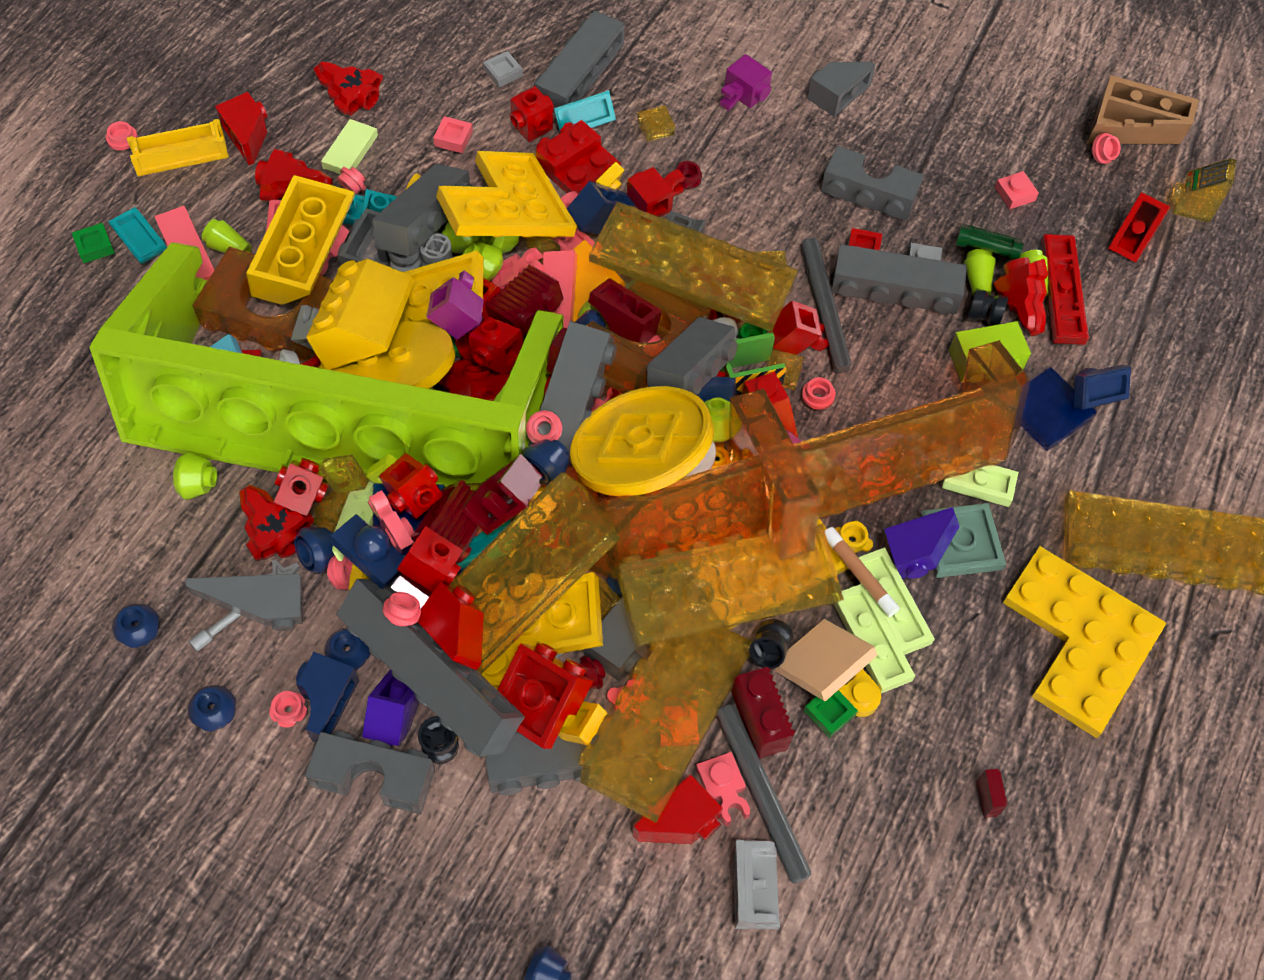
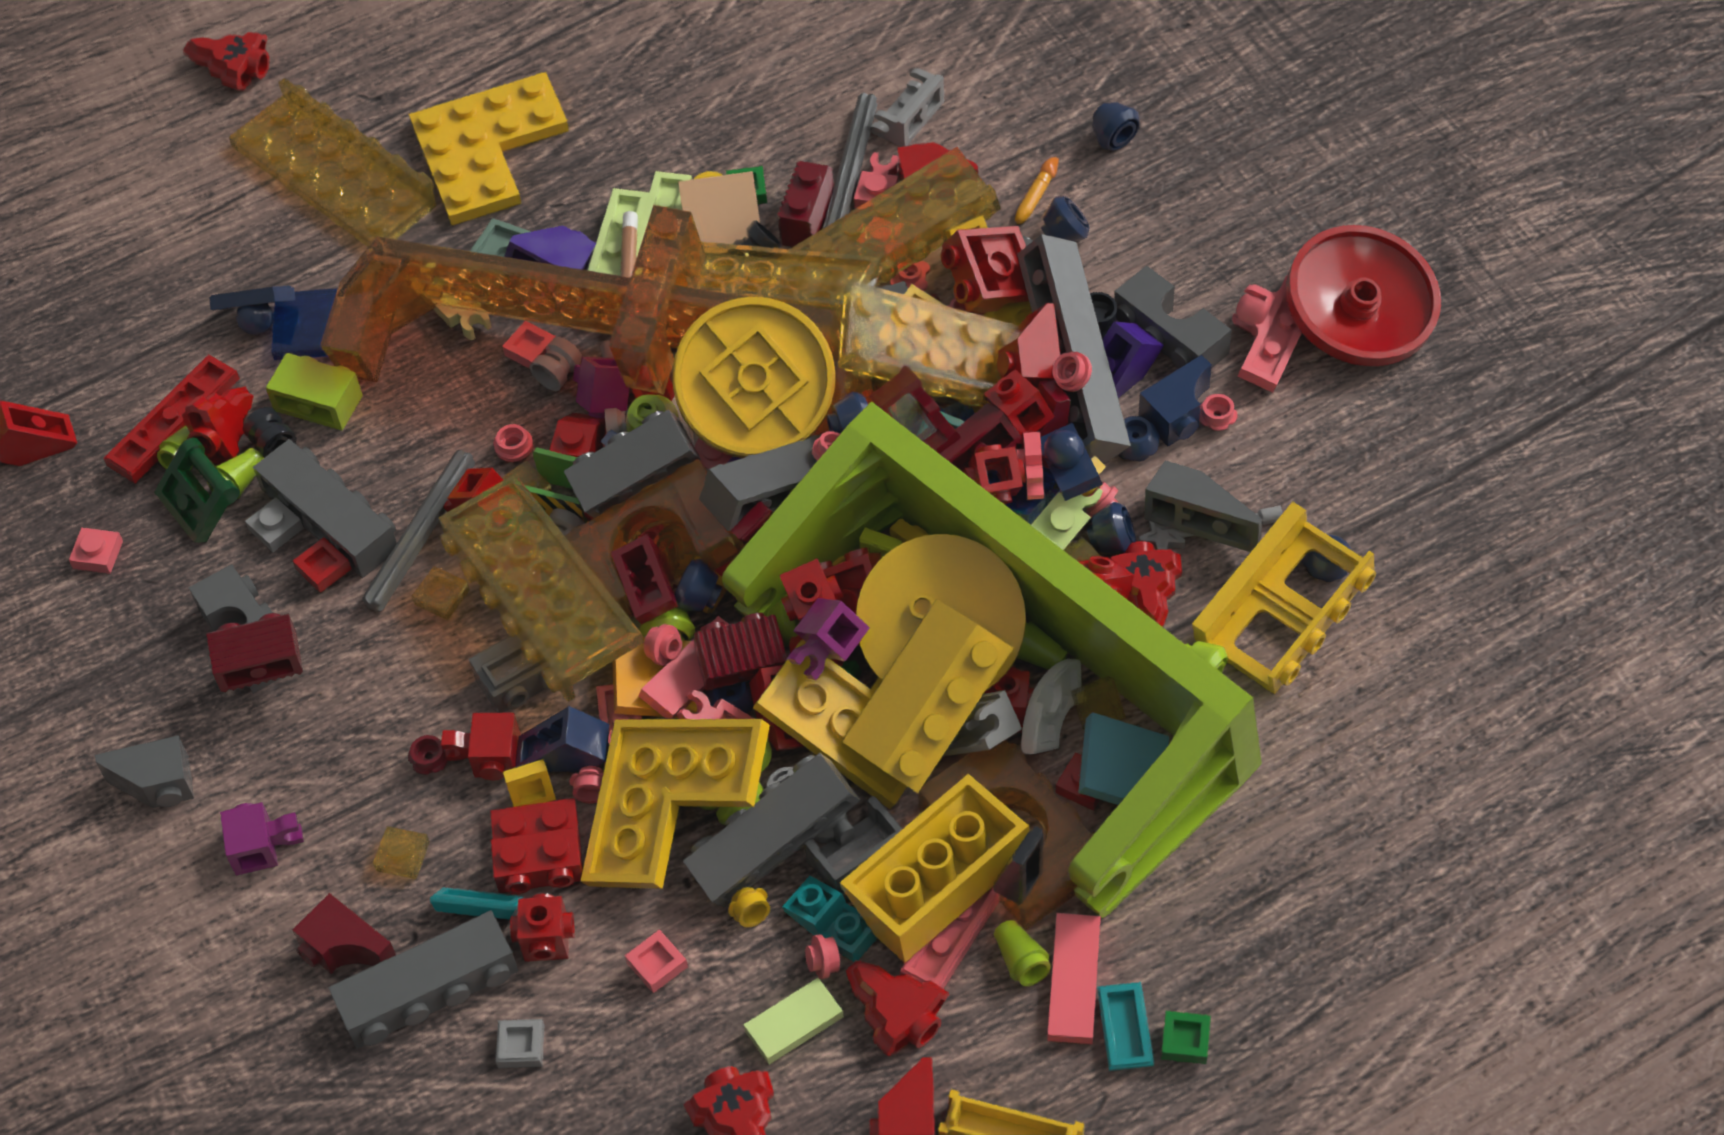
camera: 140 degrees left, 5 degrees down
(169, 564) = (1261, 587): none -> yellow window
(200, 891) = (1363, 295): none -> red dish
(214, 718) = (1287, 459): dark blue plate -> none
(234, 241) = (1022, 869): none -> black slope
(274, 831) = (1274, 333): none -> coral plate
(524, 828) = (1065, 220): none -> dark blue cone
(581, 889) = (1037, 189): none -> light orange piece
(582, 285) = (663, 644): none -> coral plate
(642, 62) = (339, 937): none -> dark red arch
(836, 145) = (254, 652): none -> dark red brick
(991, 793) = (672, 73): dark red tile -> none

